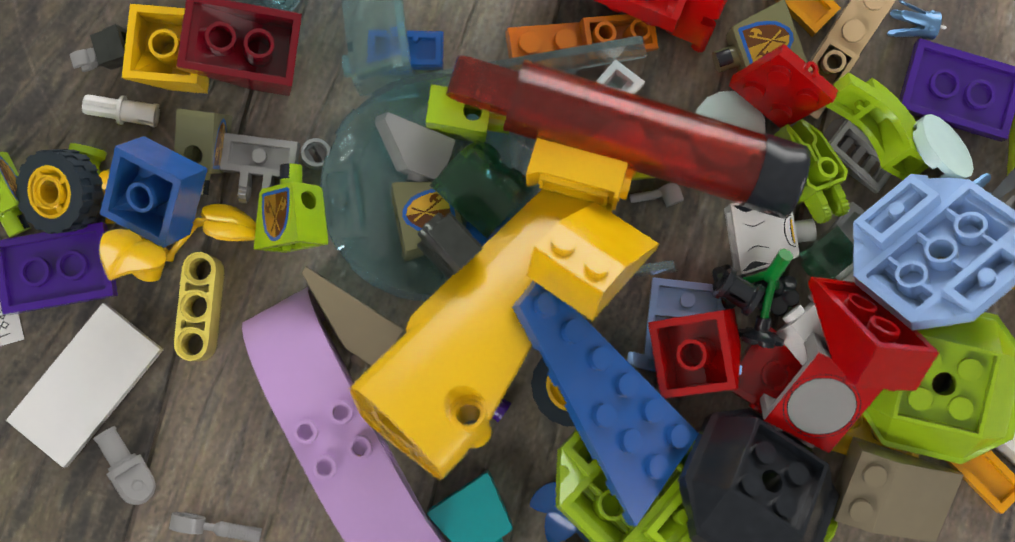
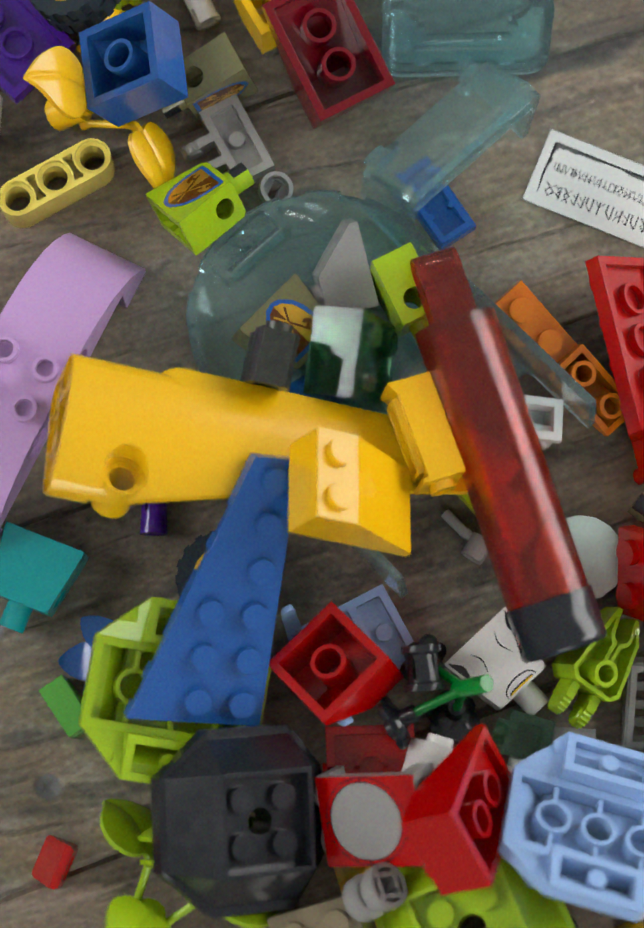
camera: 50 degrees right, 5 degrees down
(356, 324) = (141, 326): dark tan slope -> none
(874, 434) = (374, 892): none -> light grey wheel

